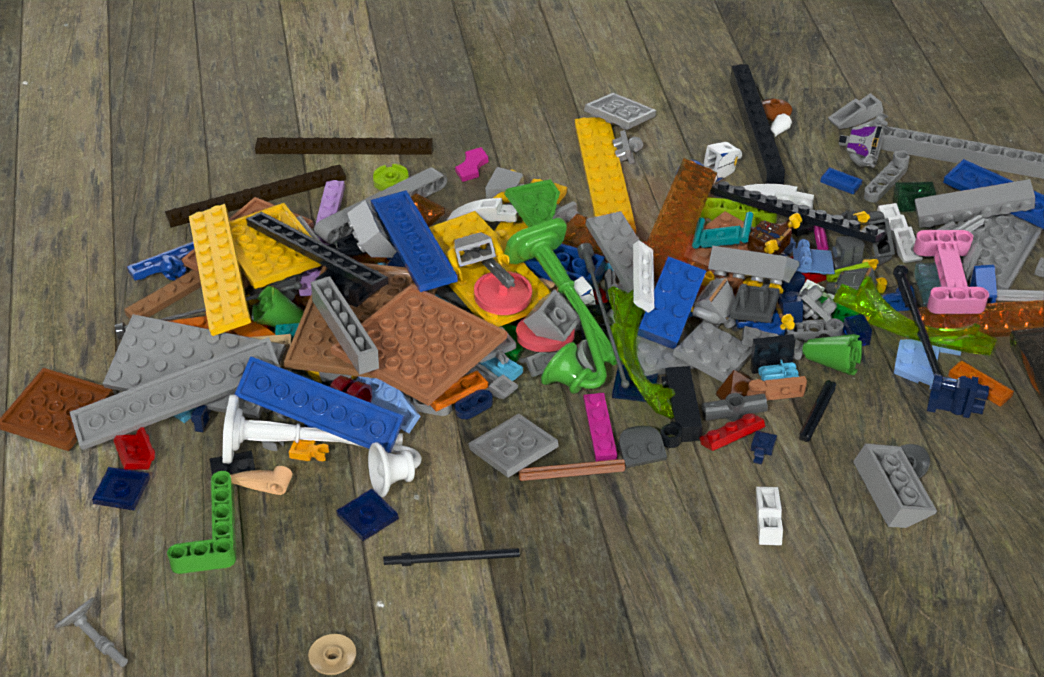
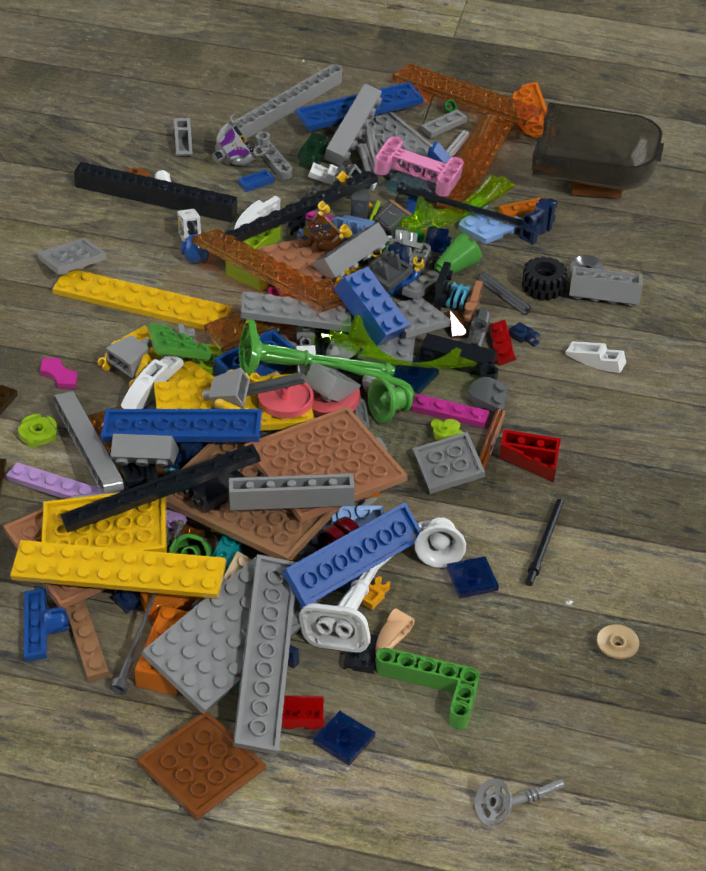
camera: 70 degrees left, 0 degrees up
(566, 504) = (531, 452): none -> red wedge
(568, 431) = (445, 429): none -> lime plate
(586, 252) = (266, 334): dark grey piece -> none
(626, 147) = (121, 270): light grey hips -> none
(643, 276) = (339, 301): white plate -> none
(722, 236) = (304, 251): teal plate -> none
(858, 426) = (544, 278): none -> black tyre

